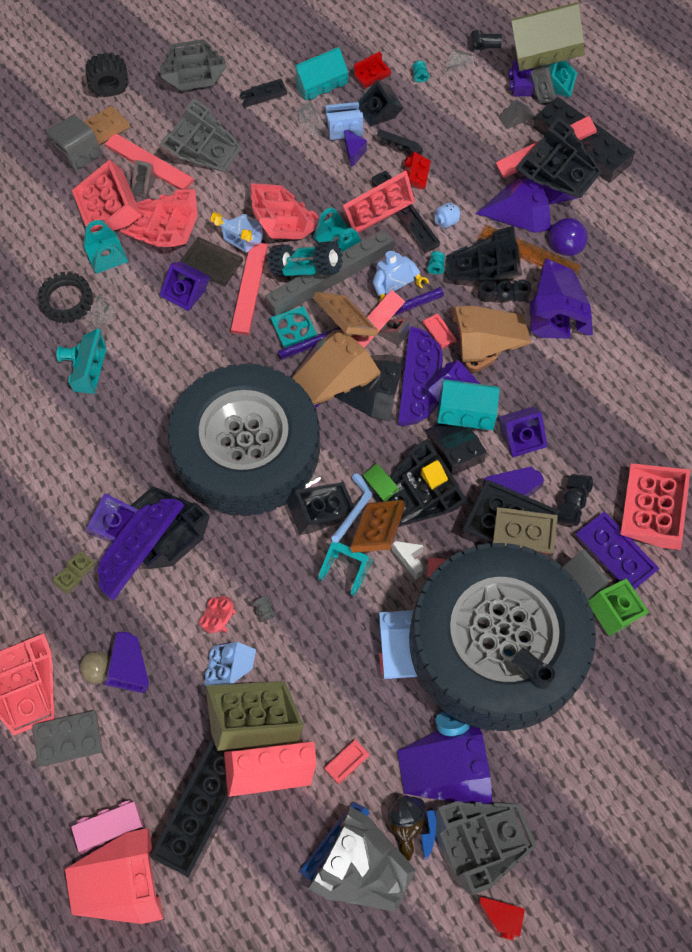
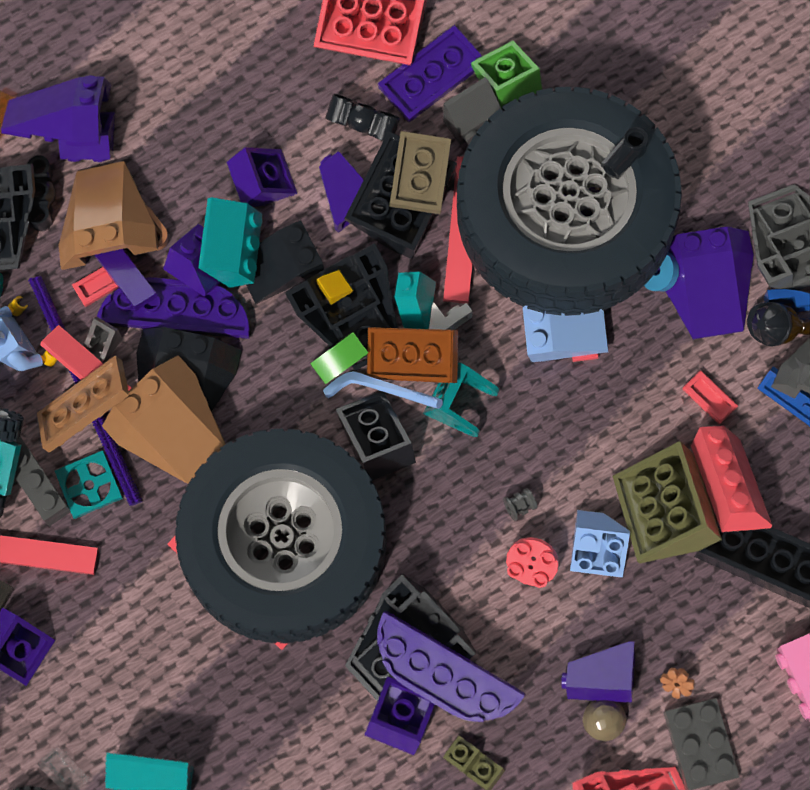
camera: 90 degrees left, 10 degrees up
(117, 722) = (677, 682): none -> nougat plant
(427, 533) = (415, 299): none -> teal slope
(440, 343) = (127, 277): none -> dark purple tile

